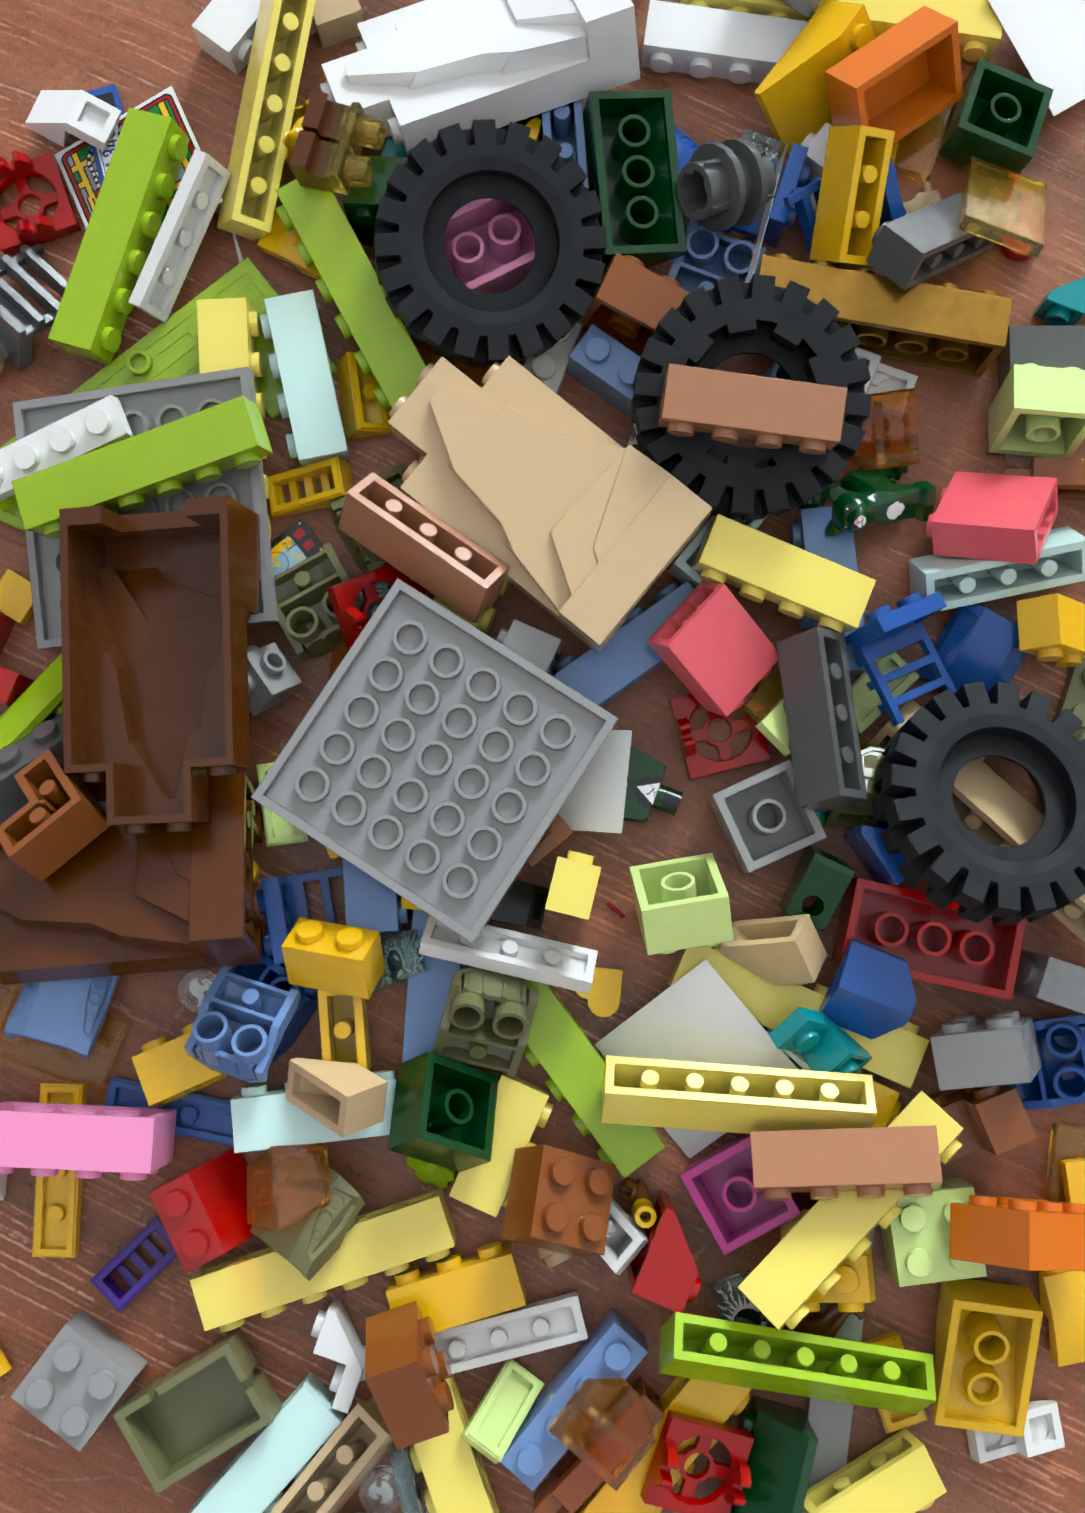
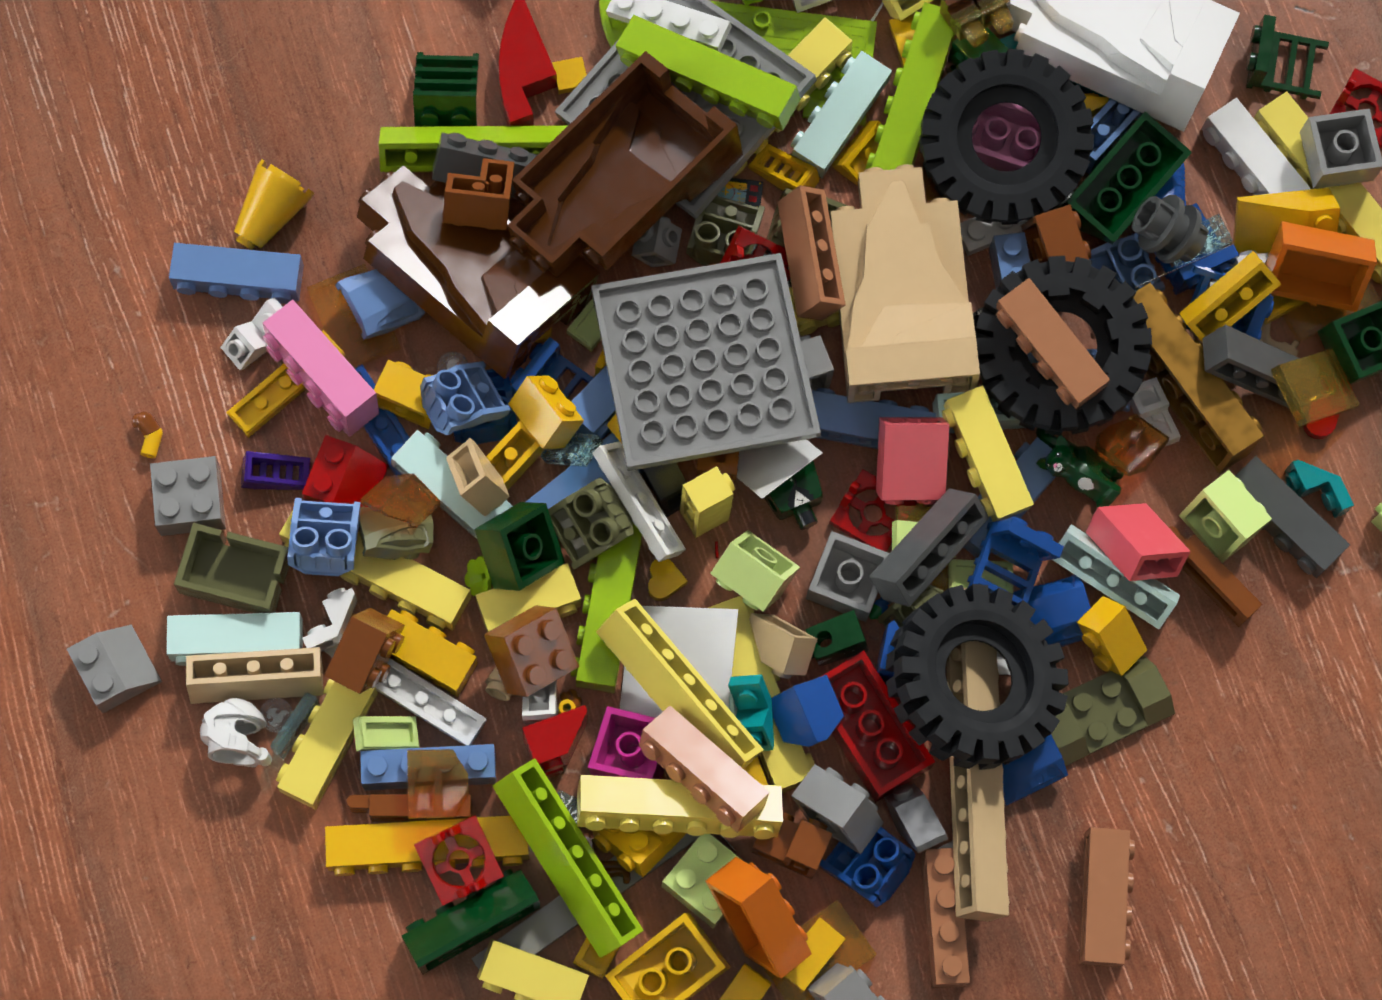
camera: 35 degrees right, 10 degrees down
(249, 1298) = (323, 537): none -> medium blue slope

